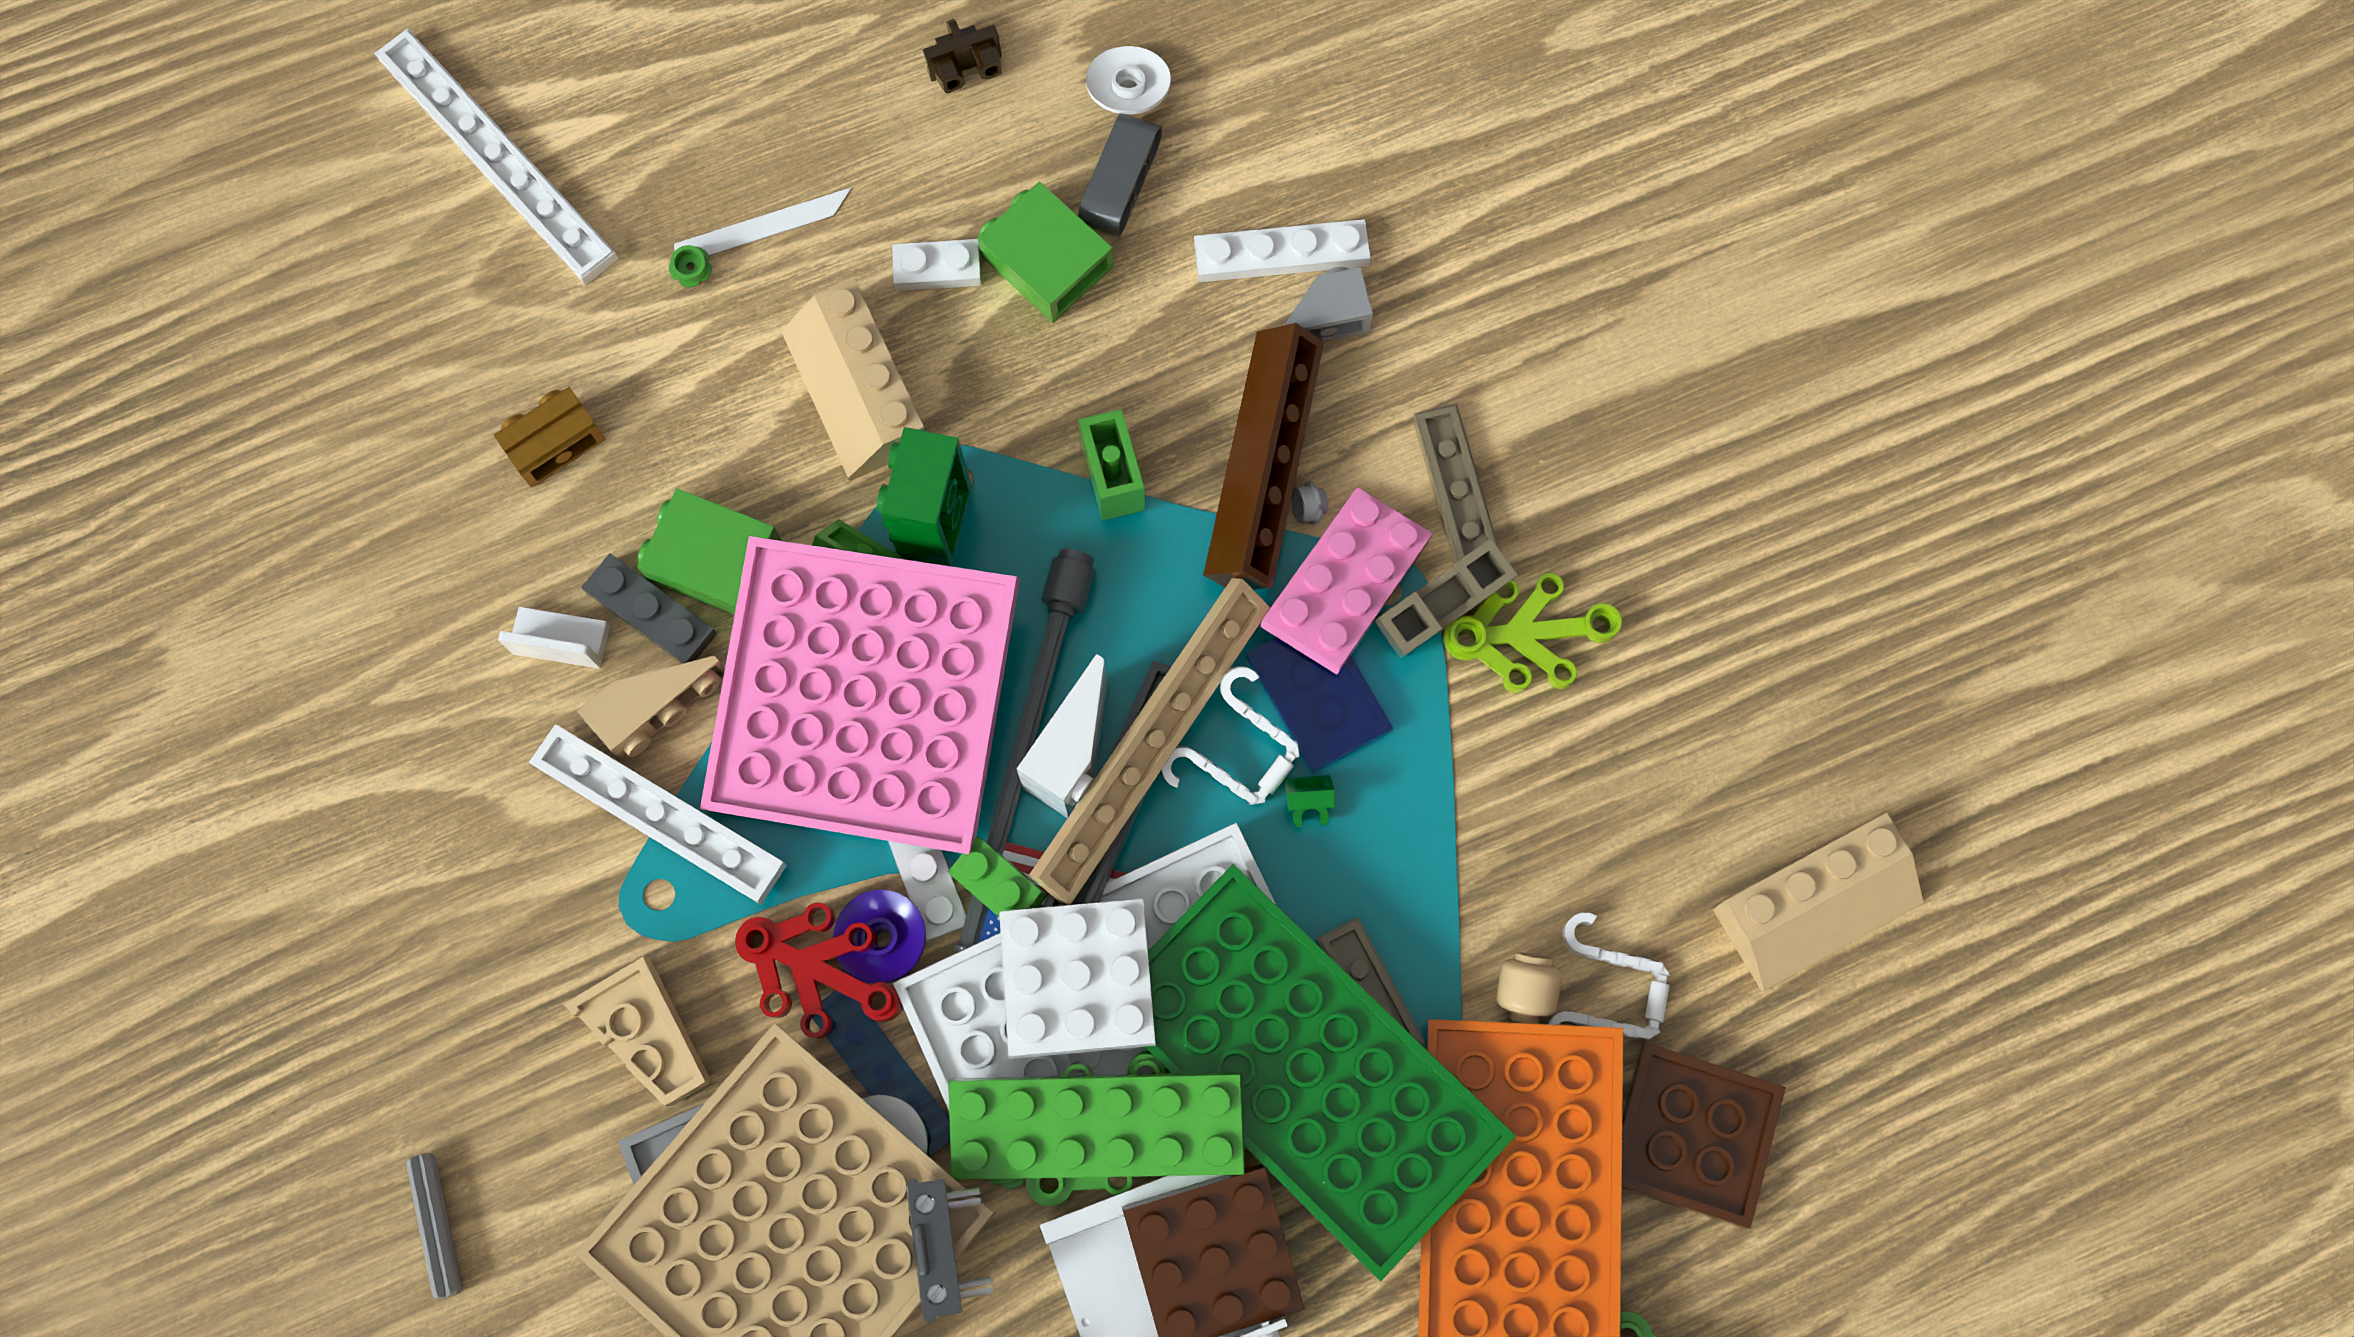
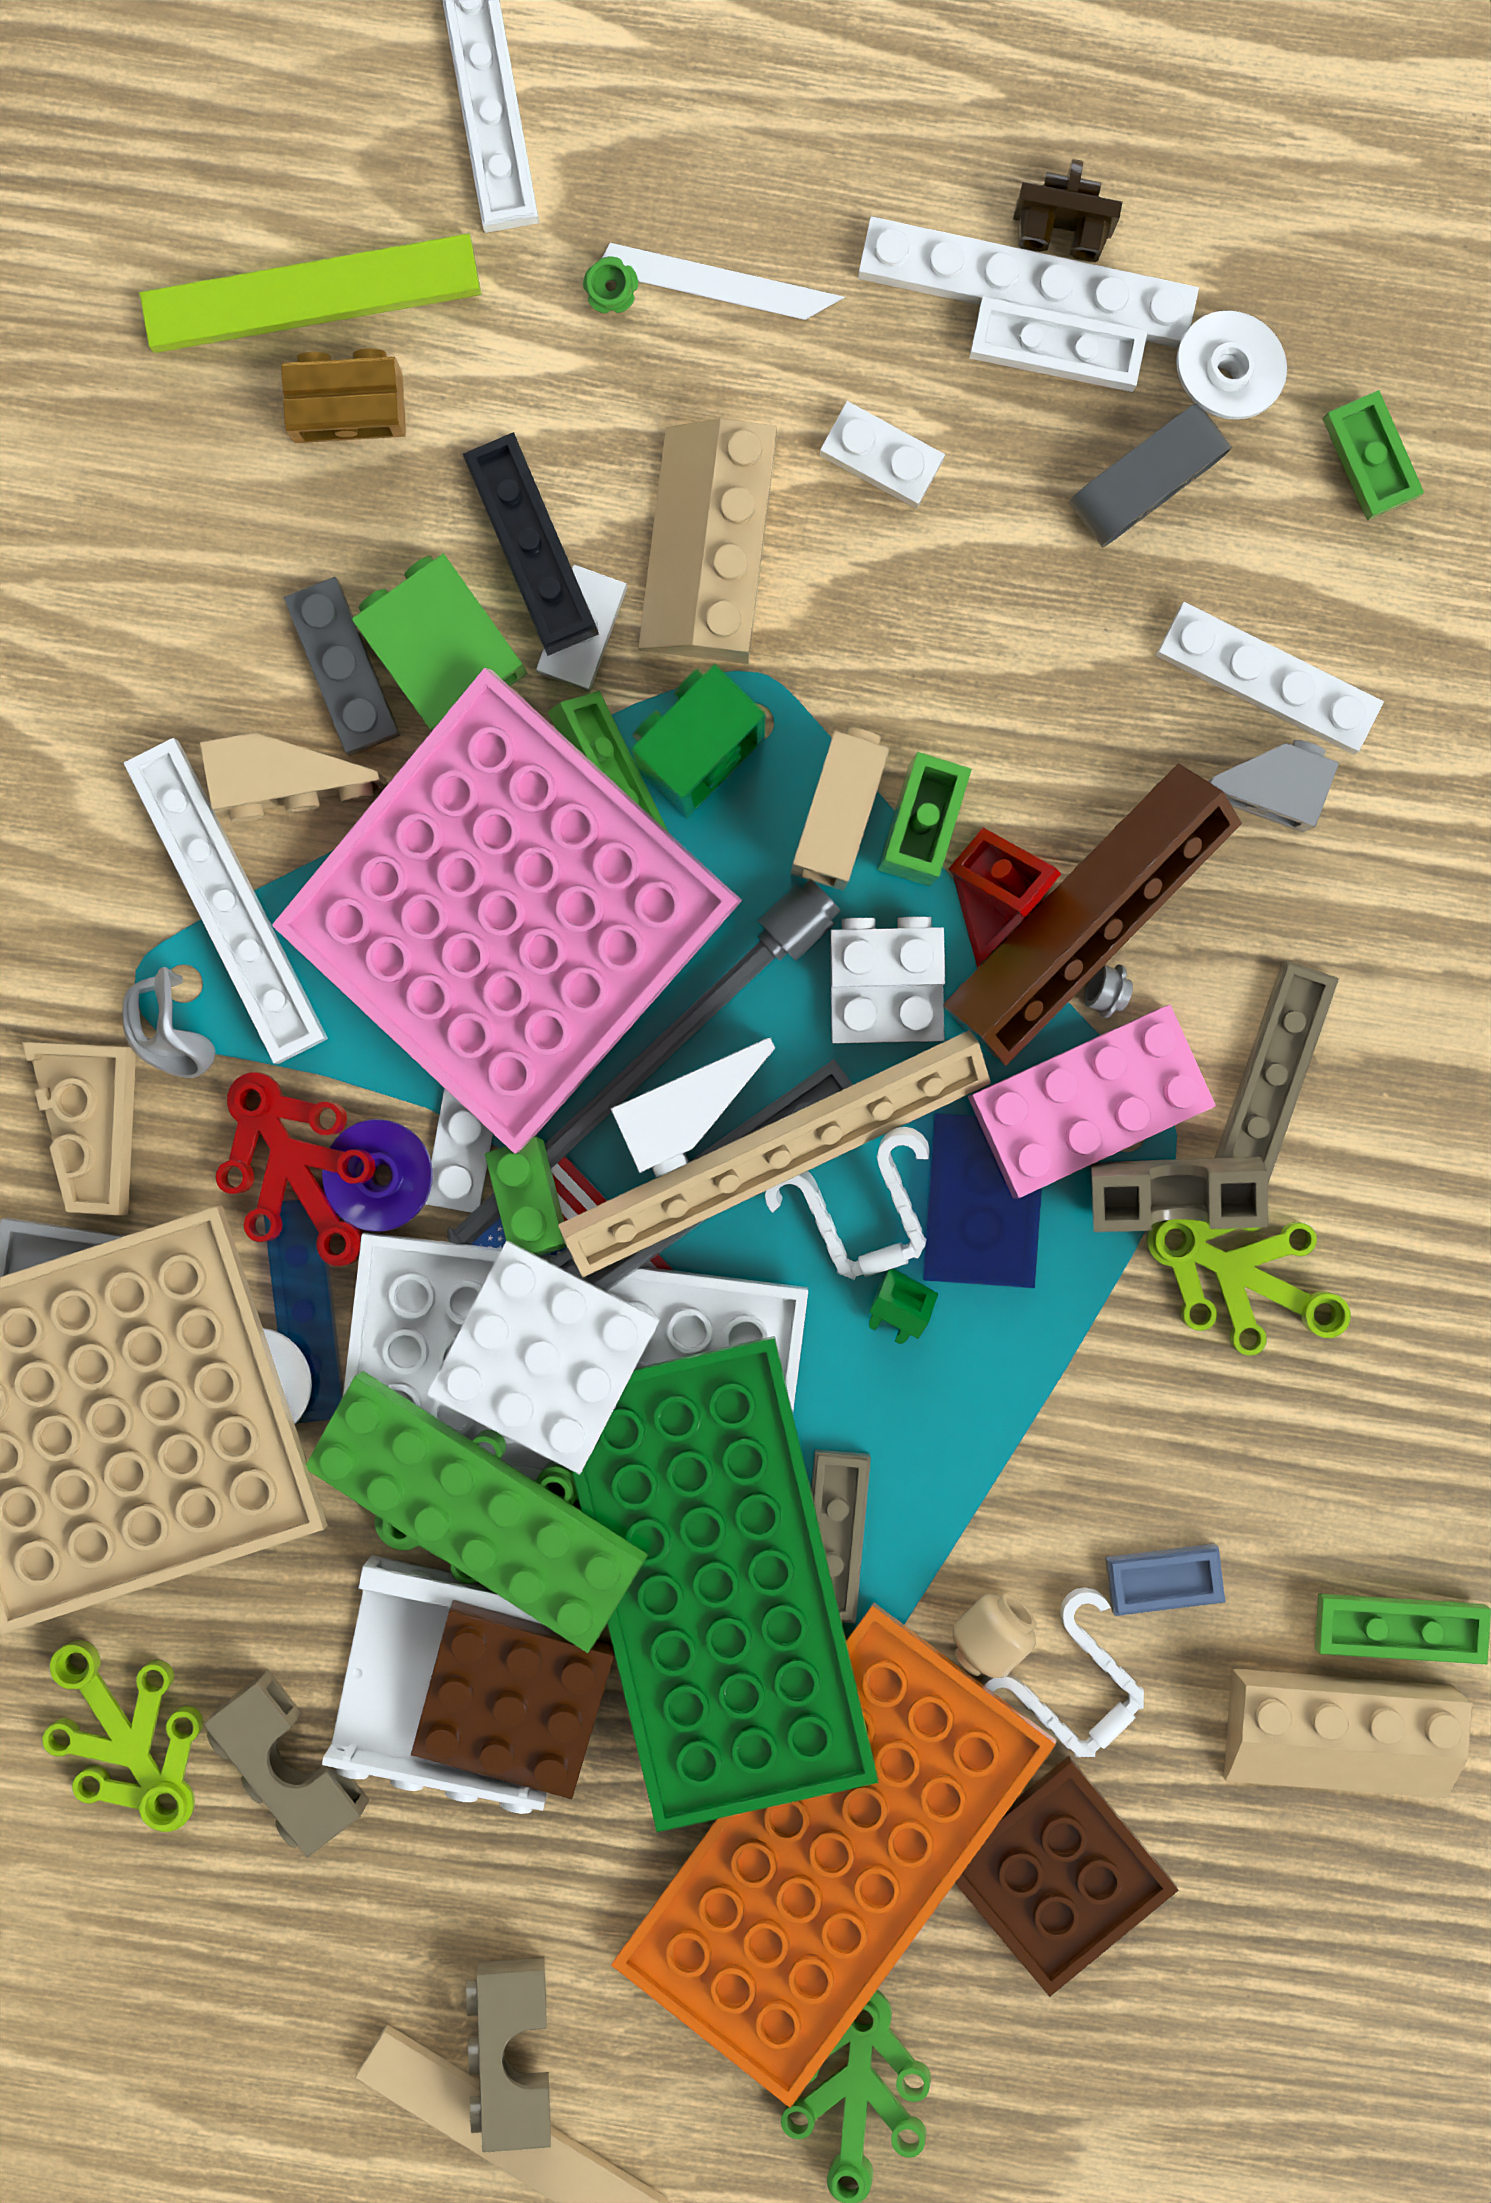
camera: 30 degrees right, 15 degrees up
(486, 388) = (310, 293): none -> lime tile
(557, 637) = (230, 637): white panel -> none
(679, 936) = (170, 1050): none -> light grey piece
(734, 452) = (530, 544): none -> black tile
(801, 488) = (580, 662): none -> white plate
(935, 1248) = (242, 1535): dark grey piece -> none
(964, 111) = (975, 268): none -> white plate
(1008, 133) = (1058, 344): none -> white plate
(1045, 251) = (1009, 516): bright green brick -> none
(1050, 488) = (840, 808): none -> tan brick
(1155, 587) = (887, 981): none -> white plate
(1190, 482) = (997, 889): none -> red slope
(1255, 81) = (1373, 455): none -> bright green plate
(1621, 874) = (1165, 1579): none -> sand blue tile
(1806, 801) = (1402, 1629): none -> bright green plate

